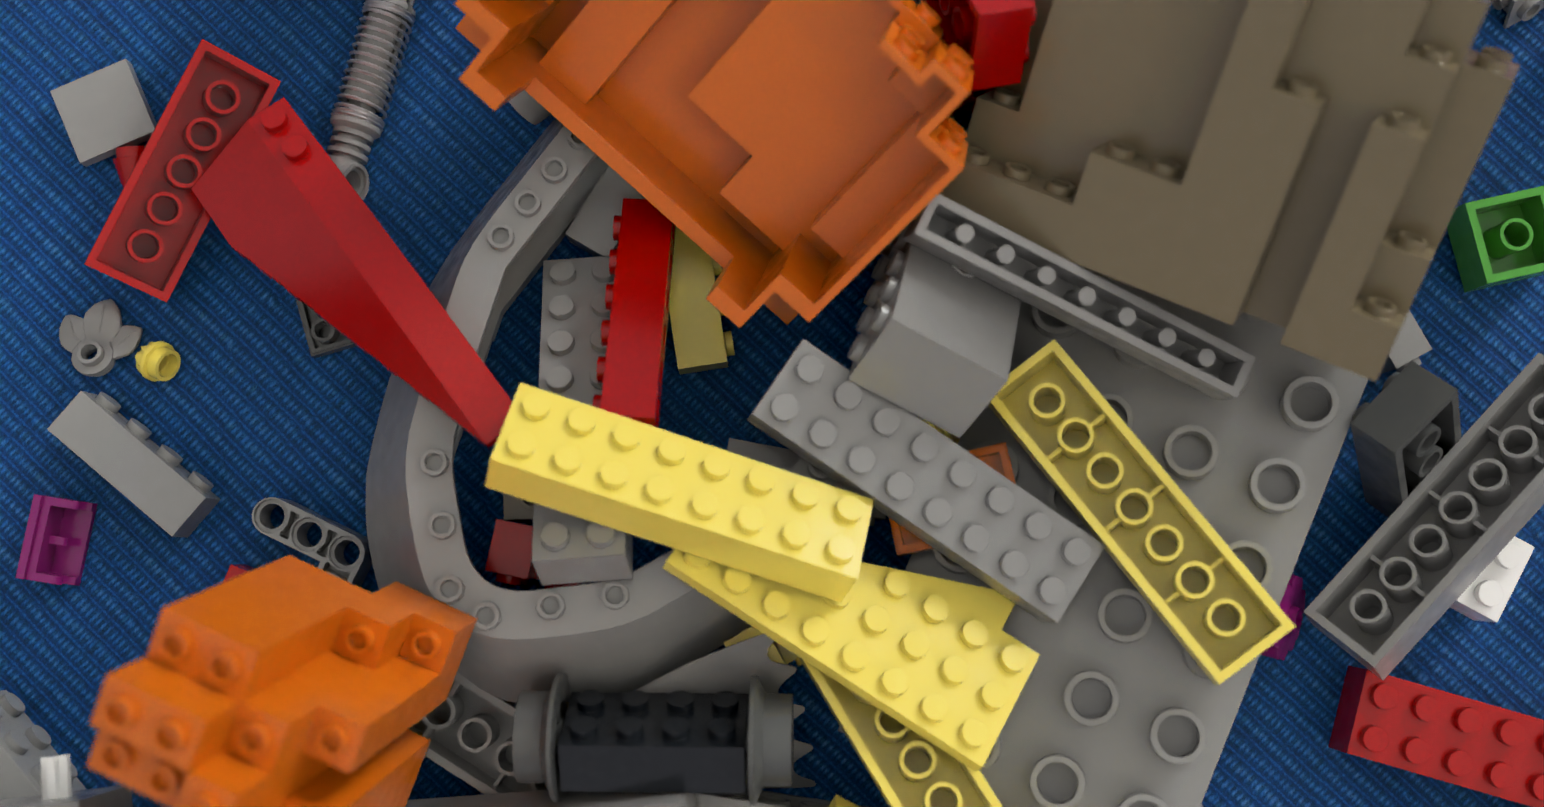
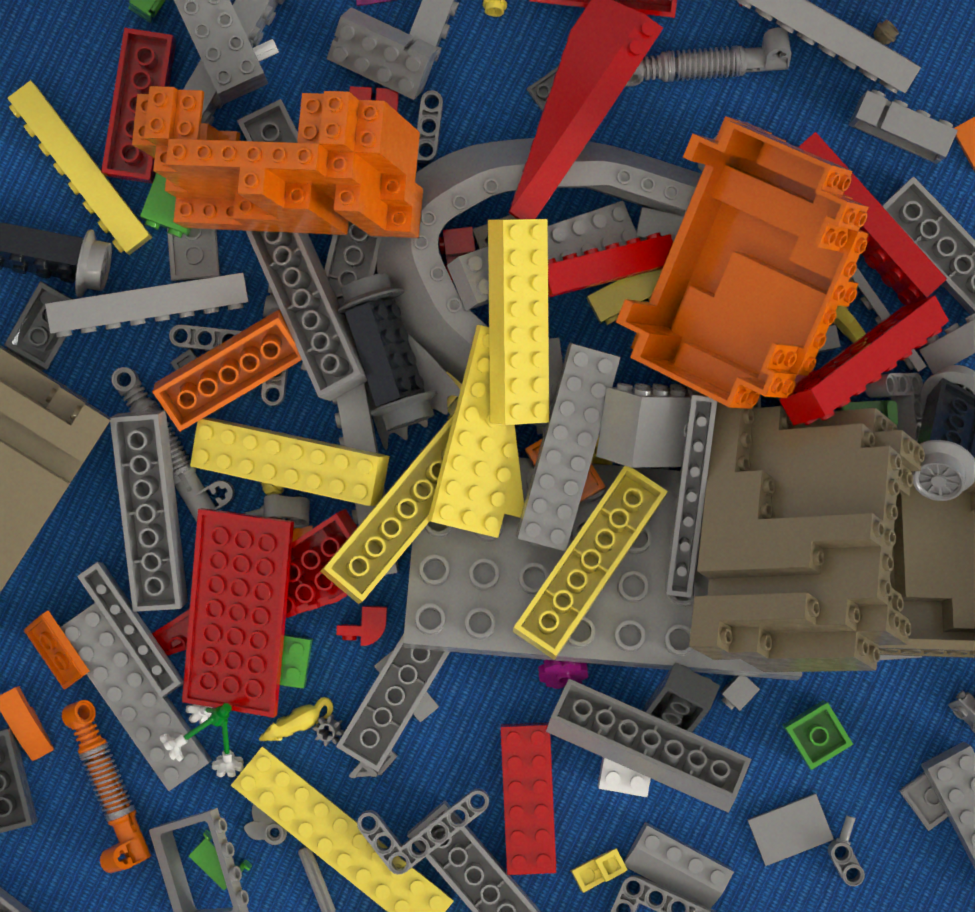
camera: 70 degrees right, 5 degrees up
(158, 568) = (380, 53): none -> light grey piece

